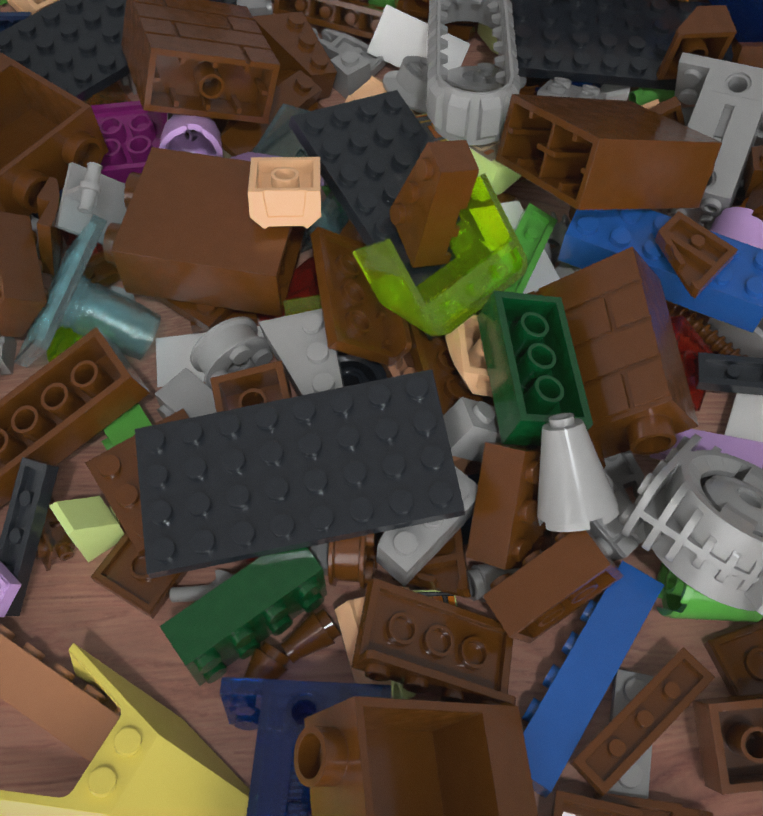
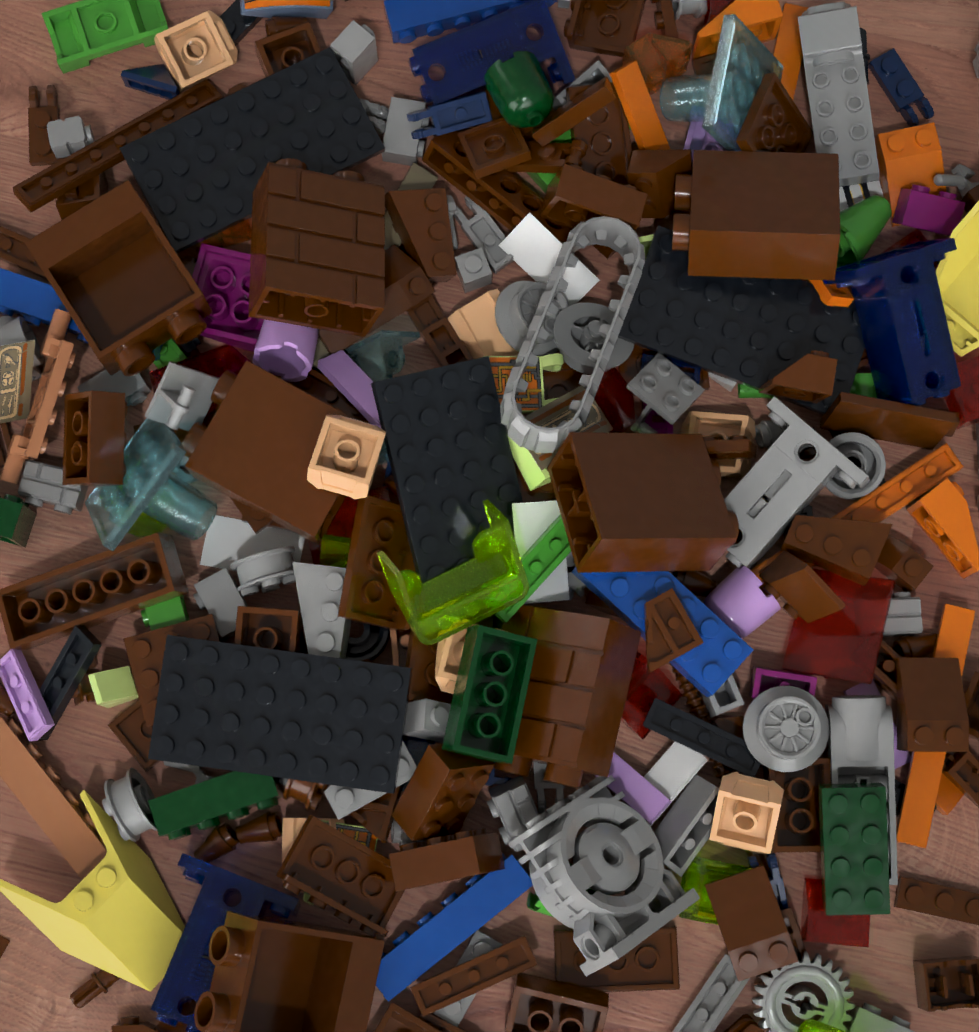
camera: 15 degrees right, 20 degrees up
(49, 236) = (141, 397): reddish brown slope -> none
(141, 652) = (129, 804): none -> light grey wheel
(432, 201) = (461, 523): reddish brown wedge -> none
(571, 478) = (478, 804): light grey cone -> none

